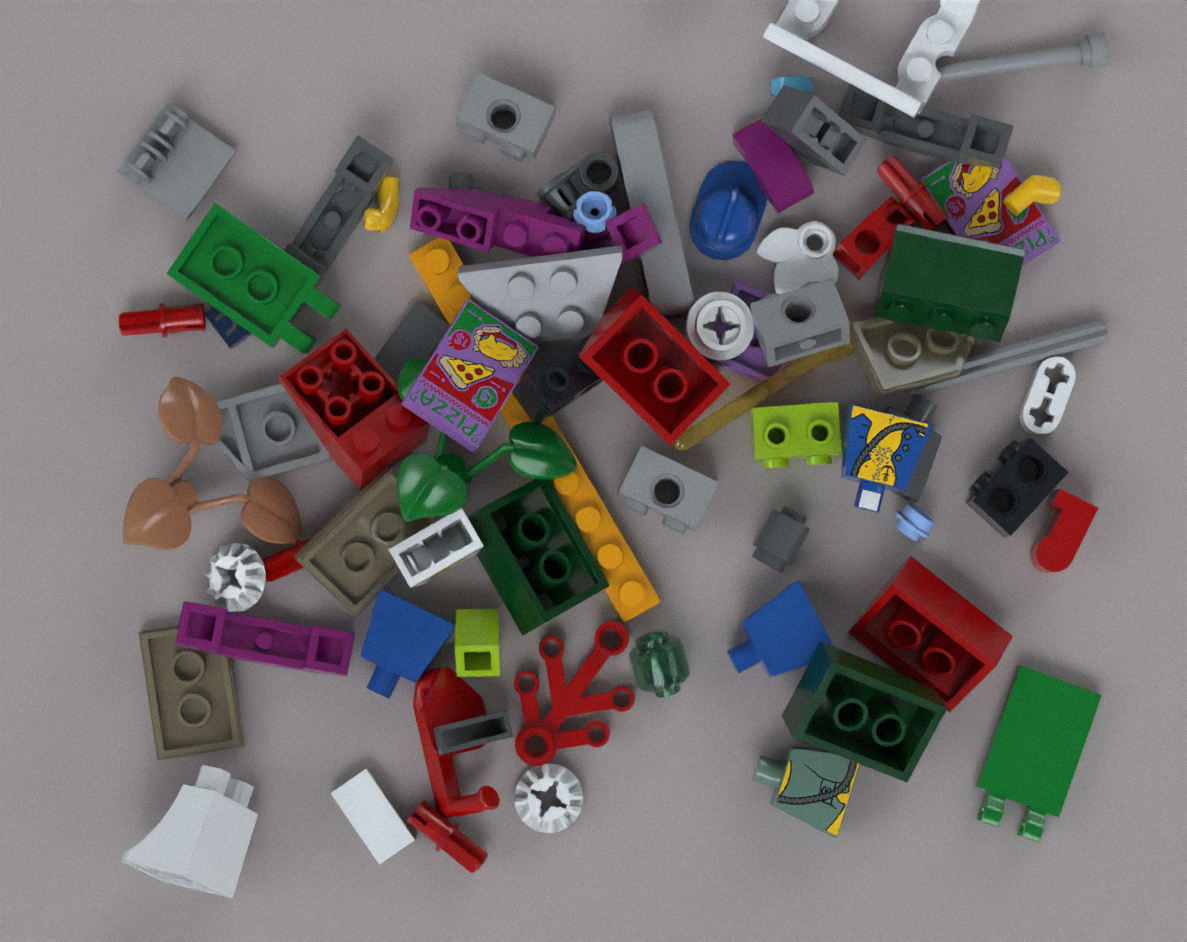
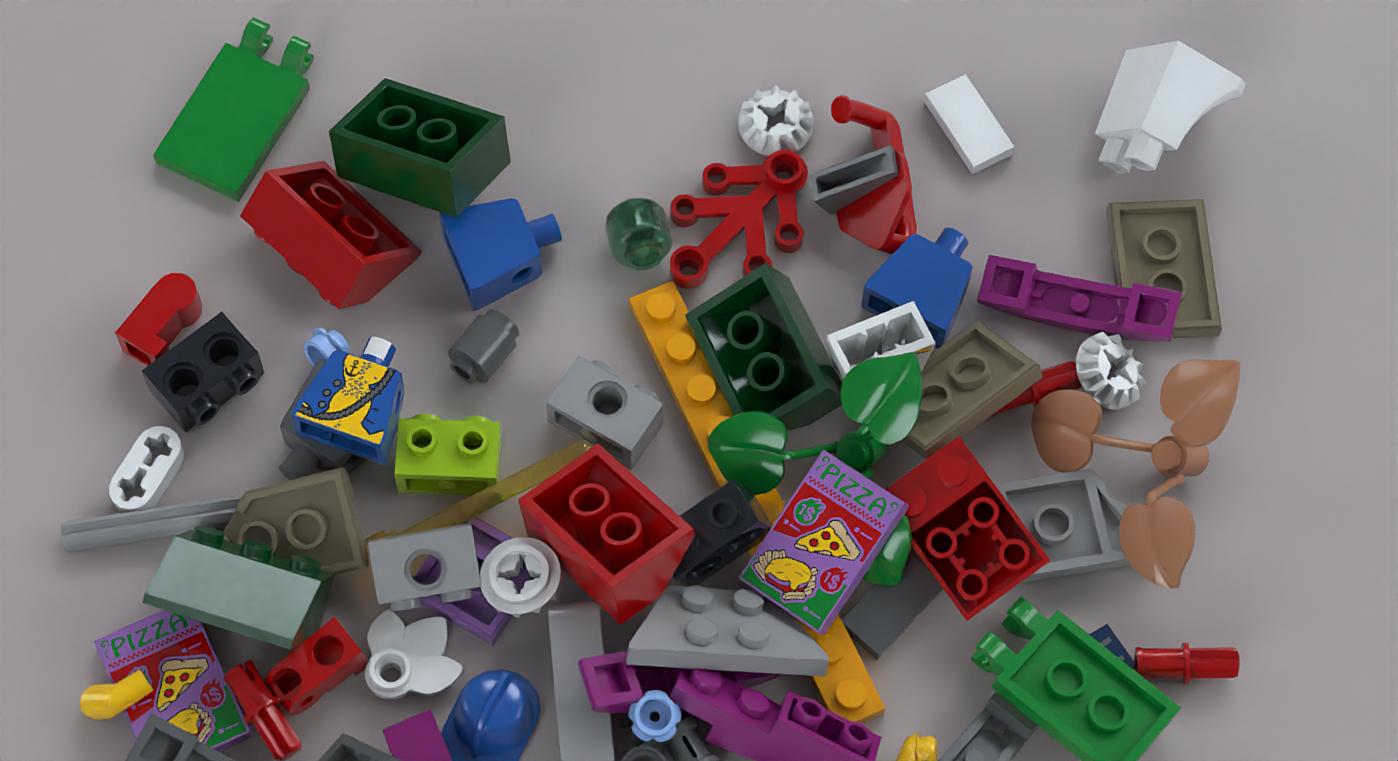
camera: 170 degrees left, 20 degrees down
(448, 837) = (890, 93): red axle -> none
(477, 642) = (839, 271): lime brick -> none
(810, 786) = (496, 85): sand green torso -> none

